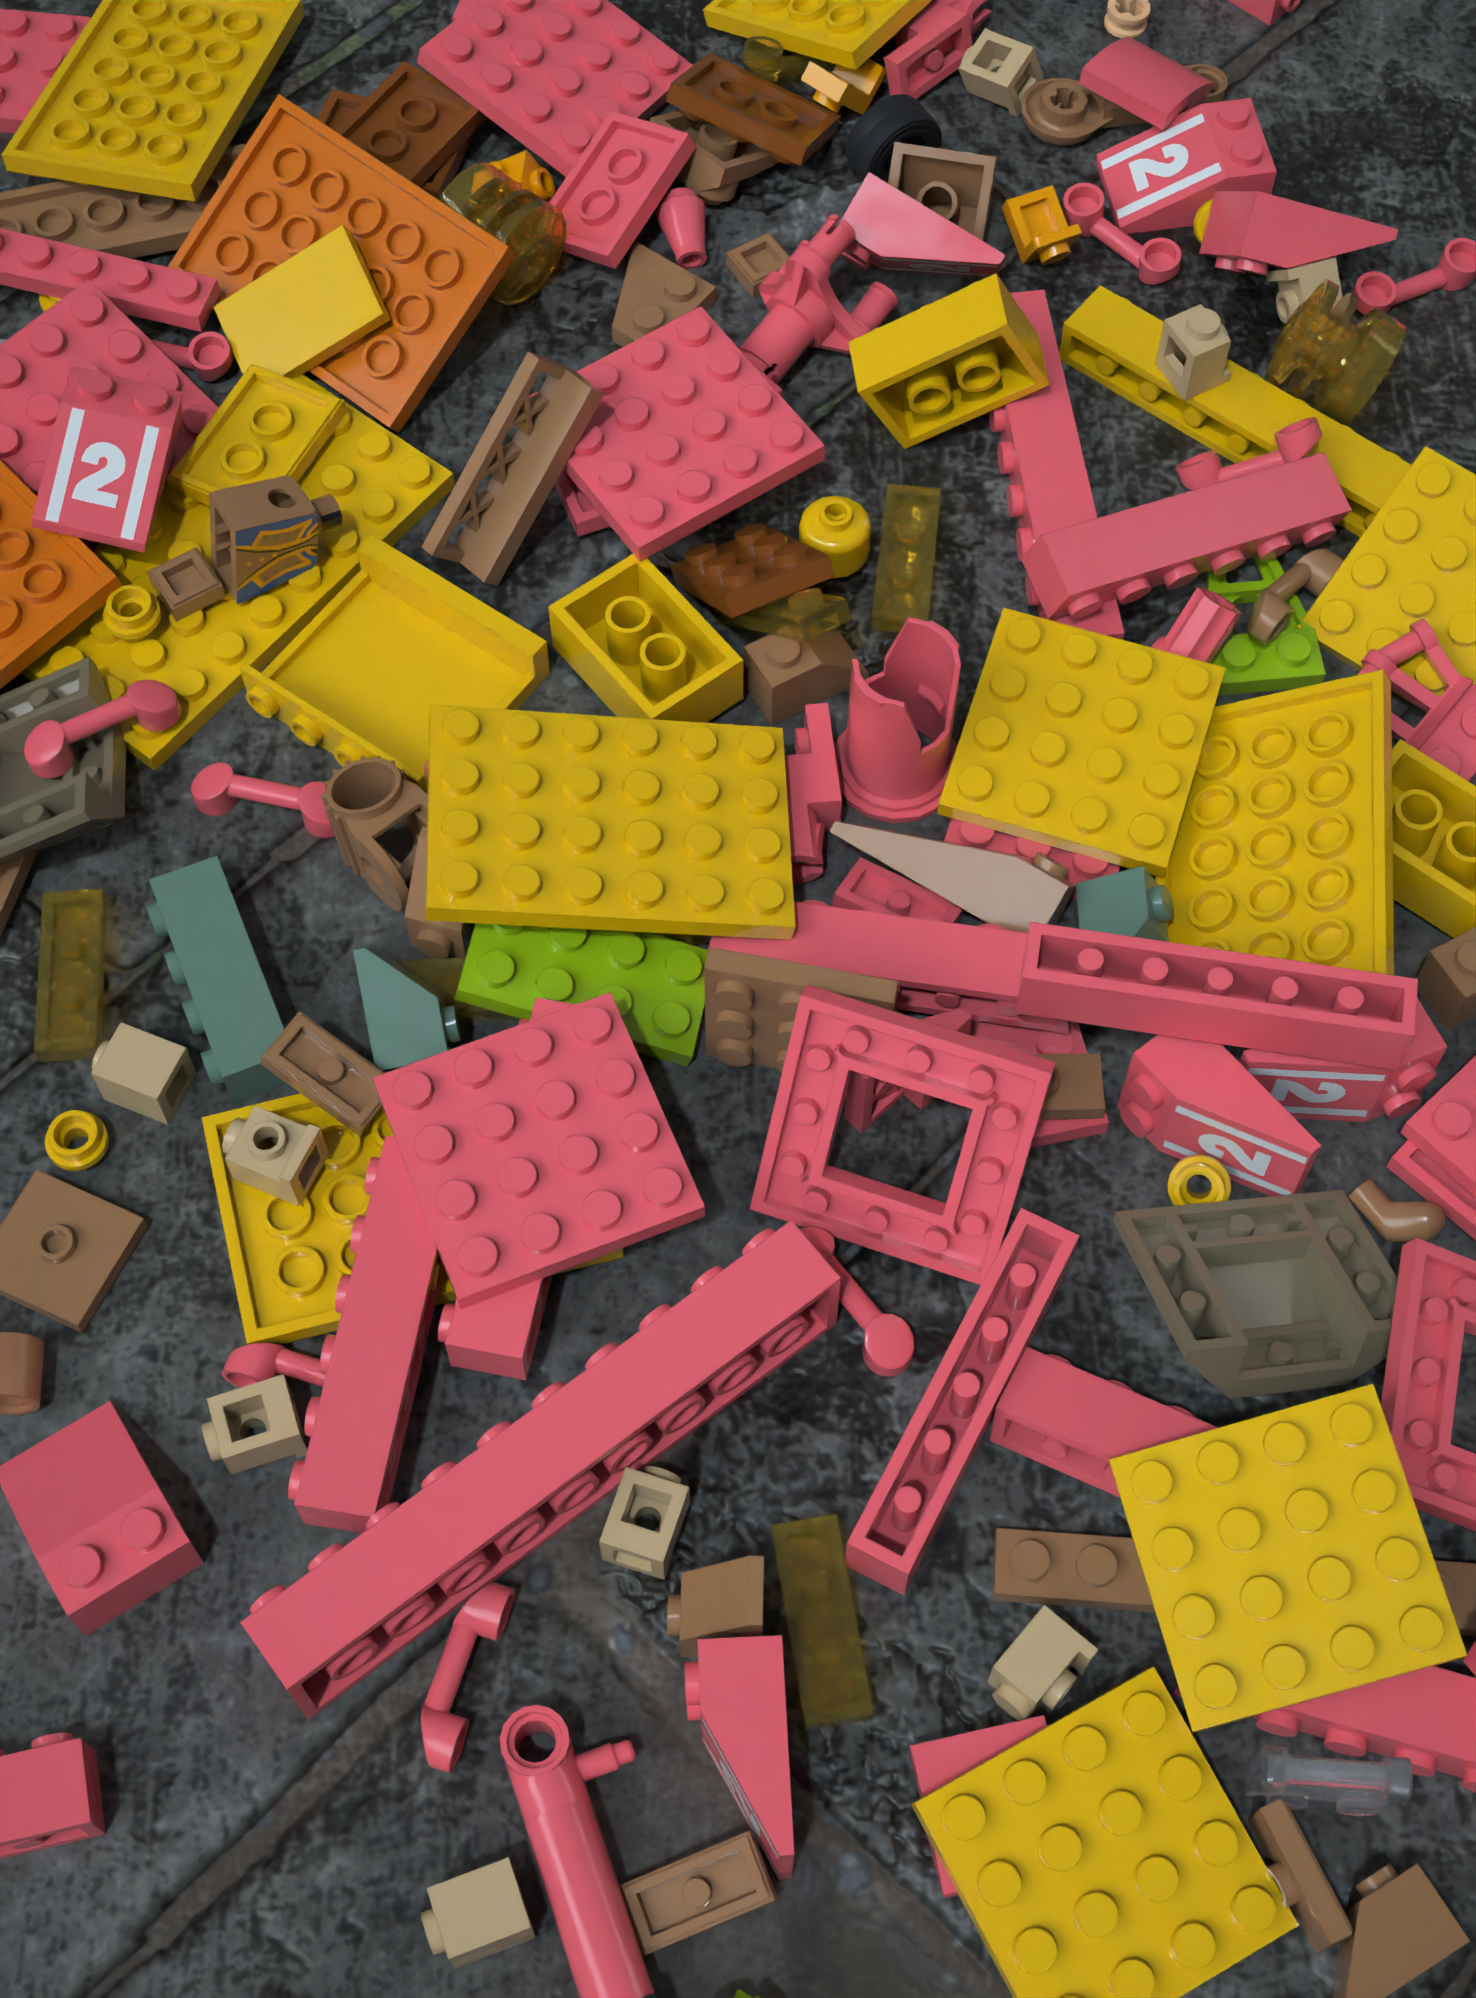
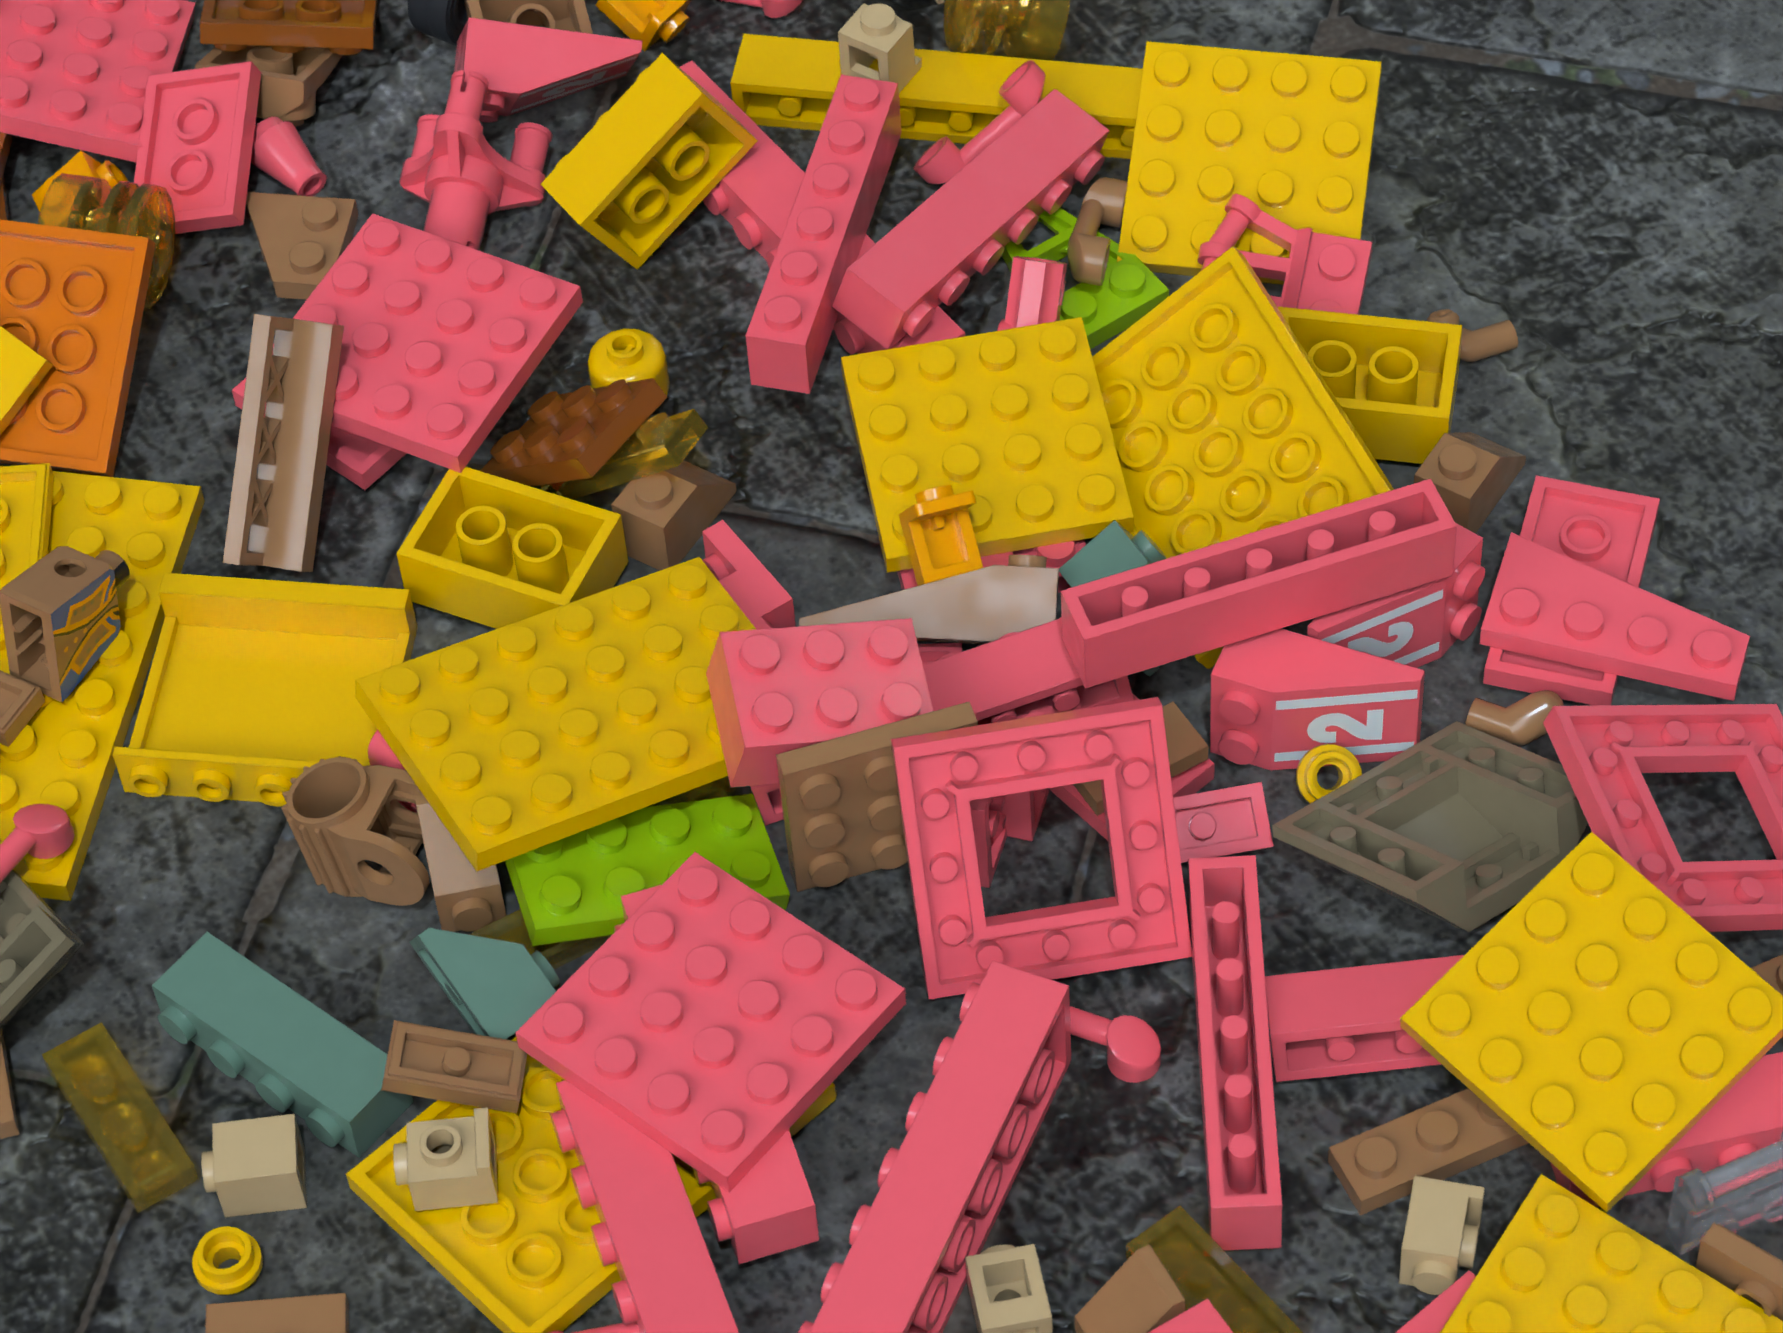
camera: 25 degrees left, 10 degrees down
(219, 789) = (151, 878): coral bar -> none
(755, 261) = (379, 161): medium nougat tile -> none
(786, 902) = (810, 686): none -> coral brick
(880, 751) = (813, 501): coral piece -> none
(905, 556) = (708, 364): clear yellow plate -> none
(987, 809) = (940, 534): none -> light orange bracket
(1053, 490) = (823, 234): none -> coral brick
(1074, 1178) = (1222, 822): none -> coral plate

